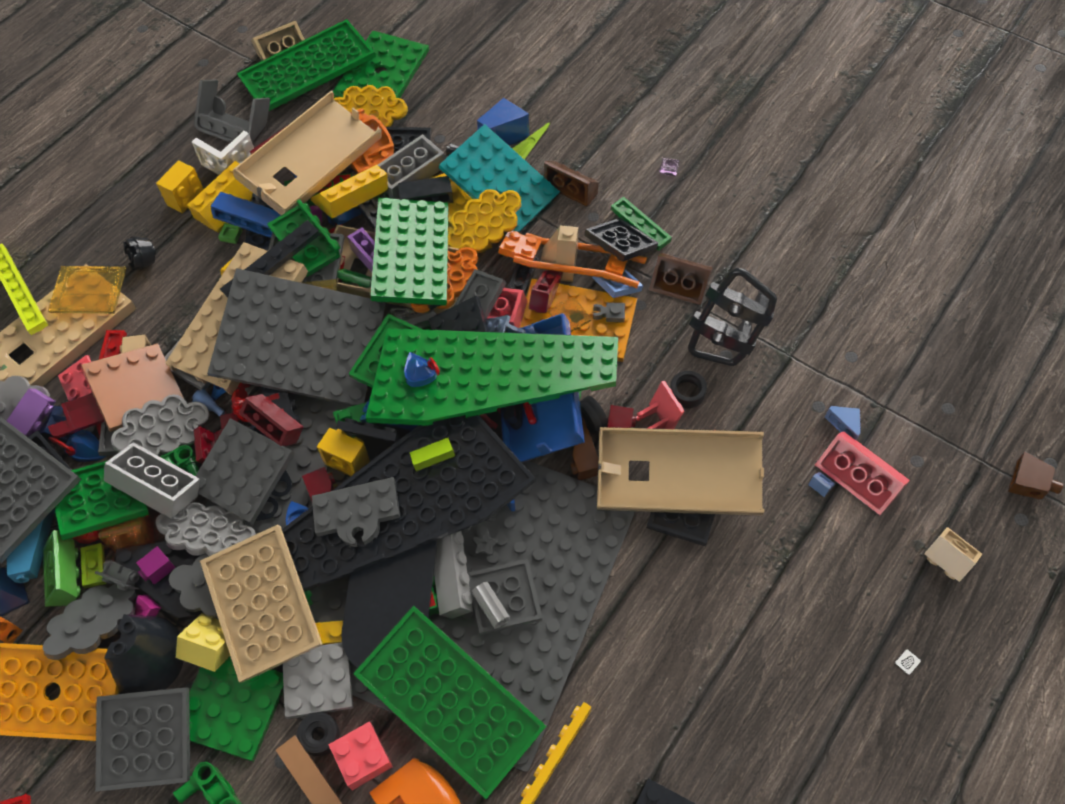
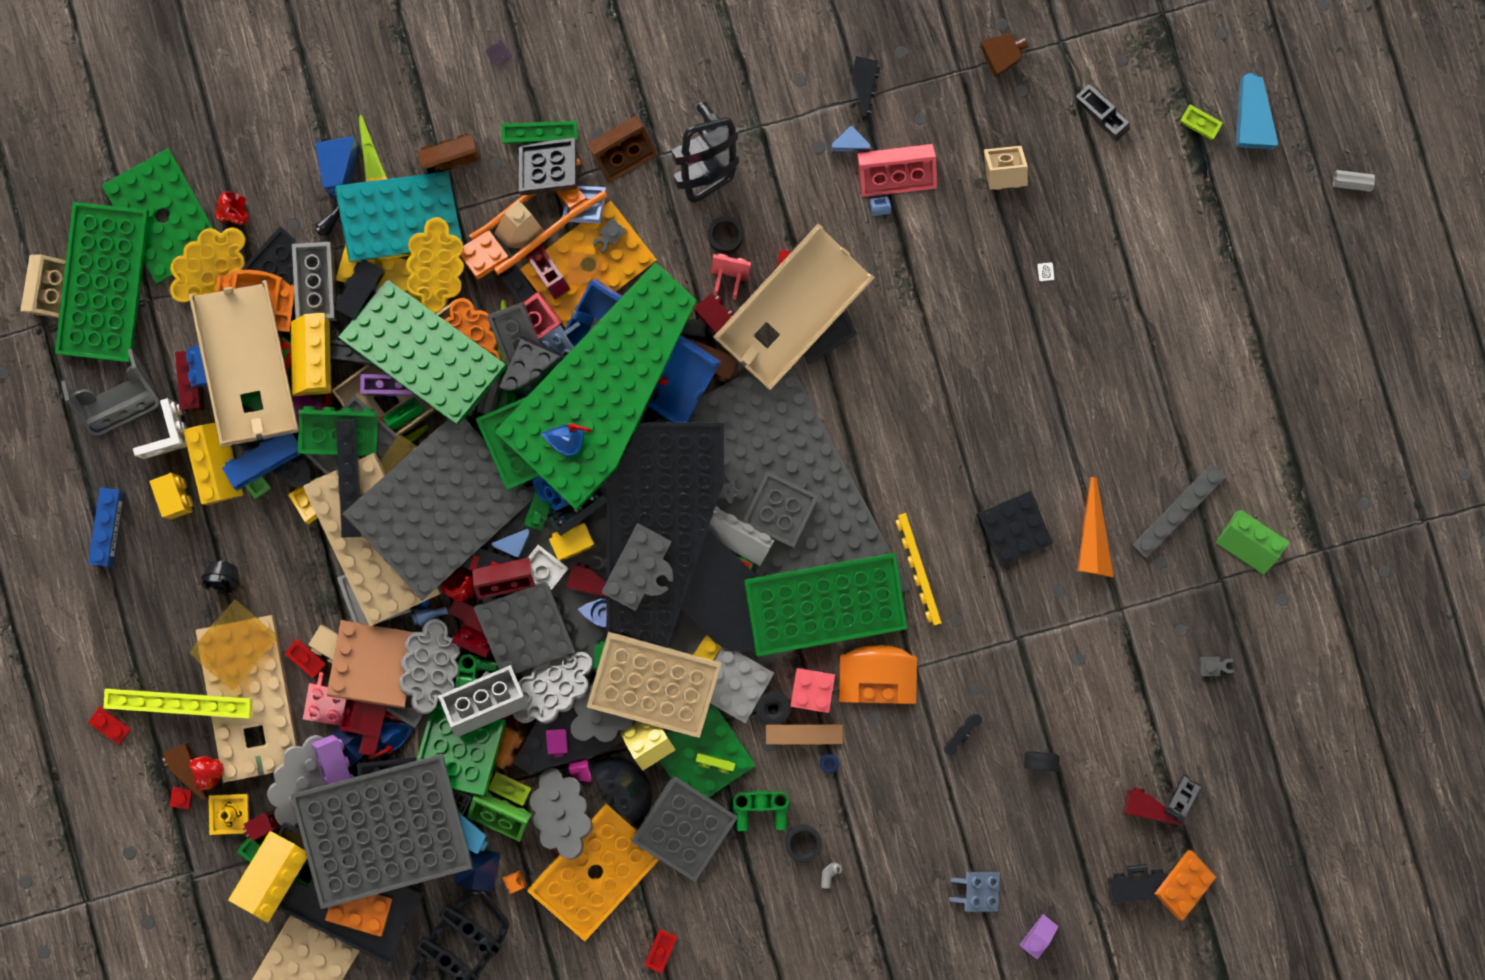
camera: 55 degrees left, 25 degrees up
(124, 579) = (547, 771): dark grey hinge -> none
(130, 170) = (106, 527): none -> blue brick
(224, 710) = (723, 765): none -> lime plate
(306, 454) = (546, 567): none -> white plate
(312, 417) = (513, 544): none -> medium blue slope
(418, 96) = (230, 208): none -> red hair
(432, 454) = (641, 481): lime slope -> none
(490, 605) = (782, 525): light grey axle -> none
(902, 394) = (862, 78): none -> black slope

